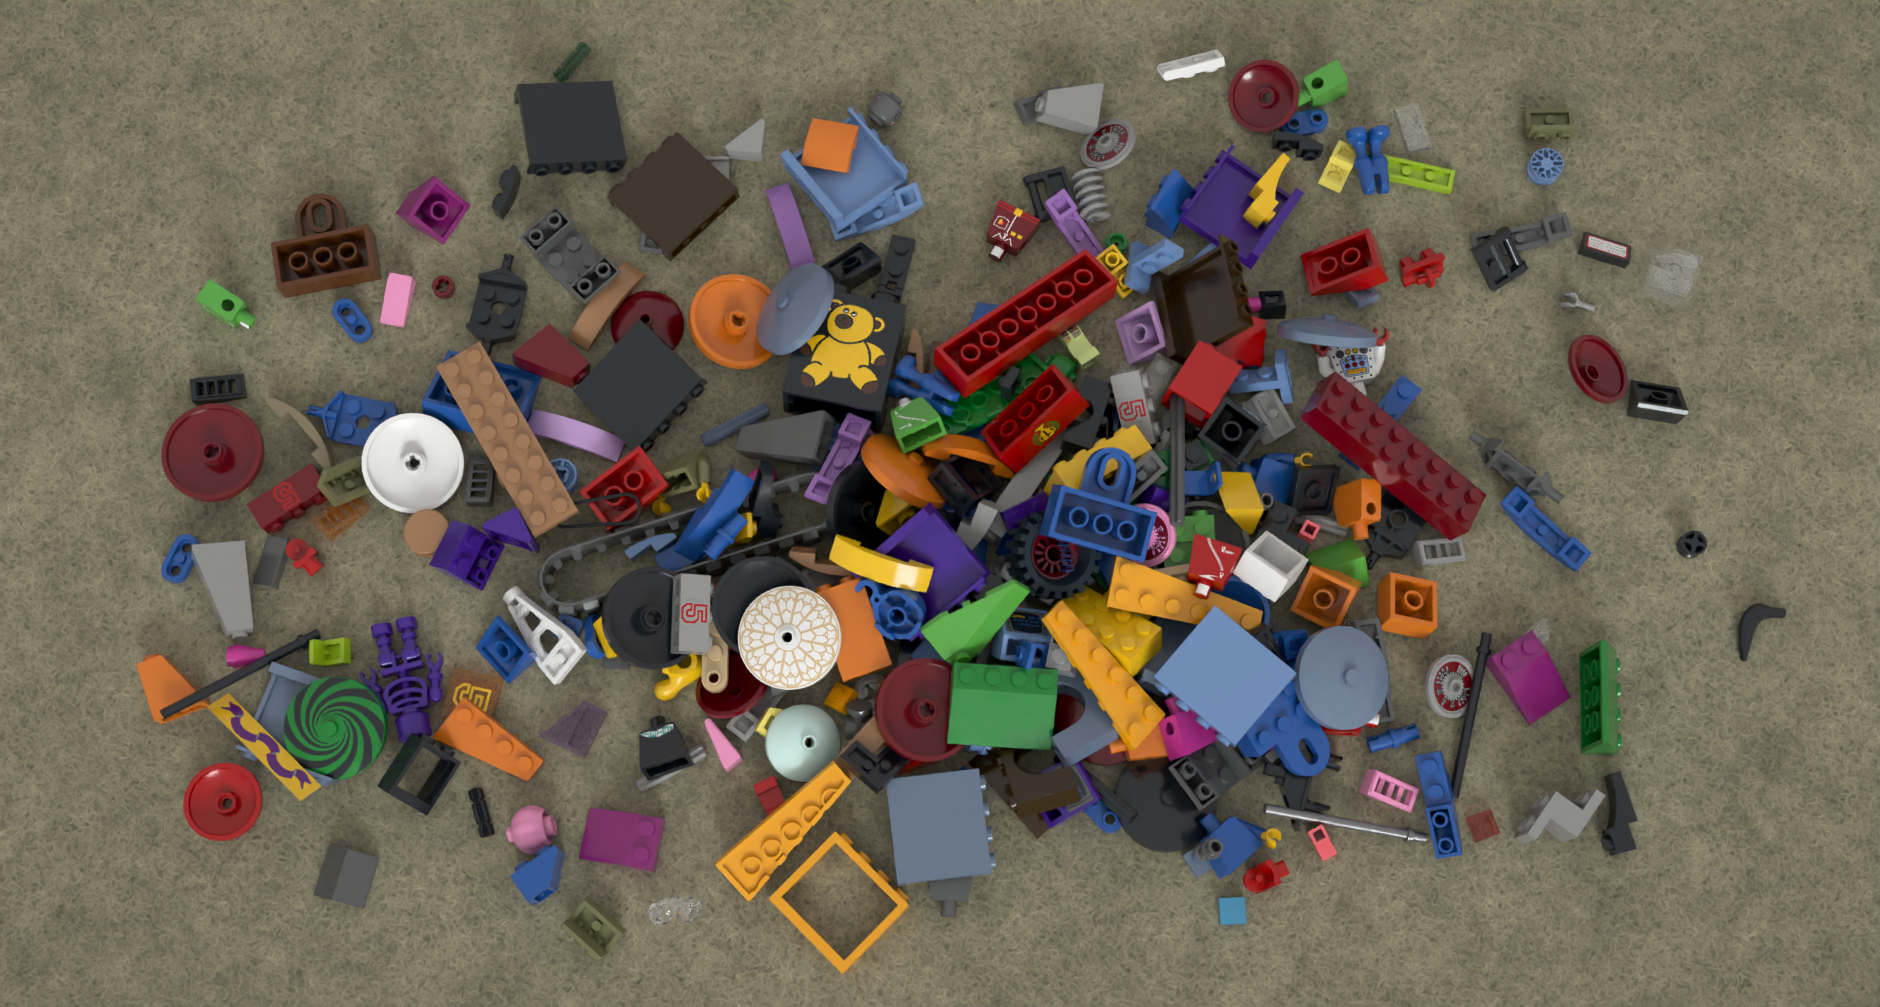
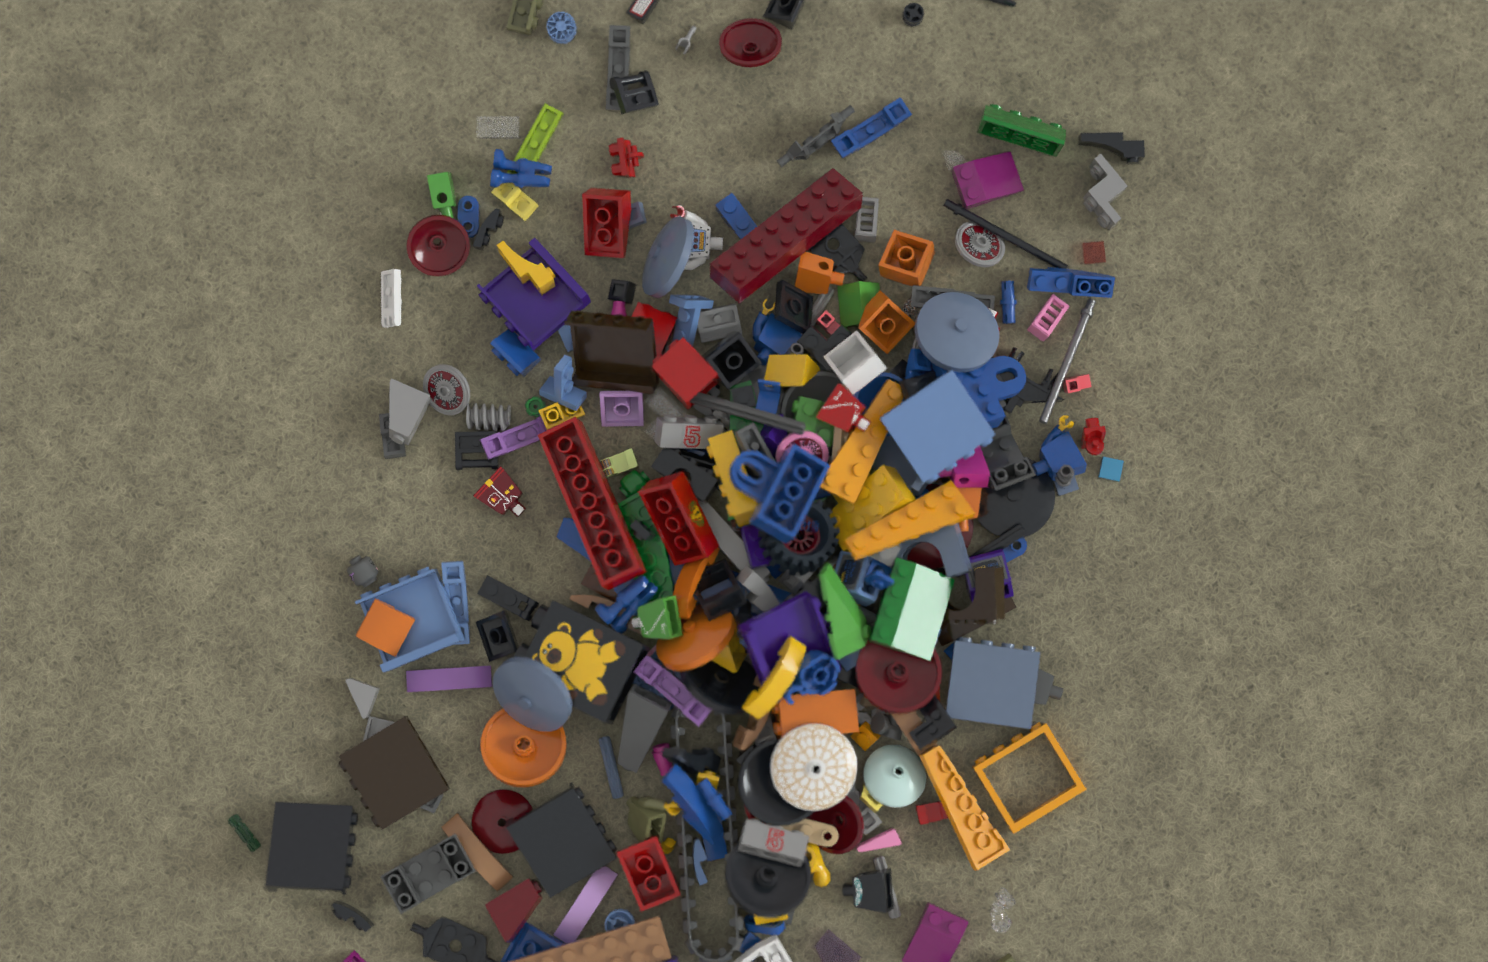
camera: 75 degrees left, 10 degrees up
(606, 523) = (675, 895): black piece -> none

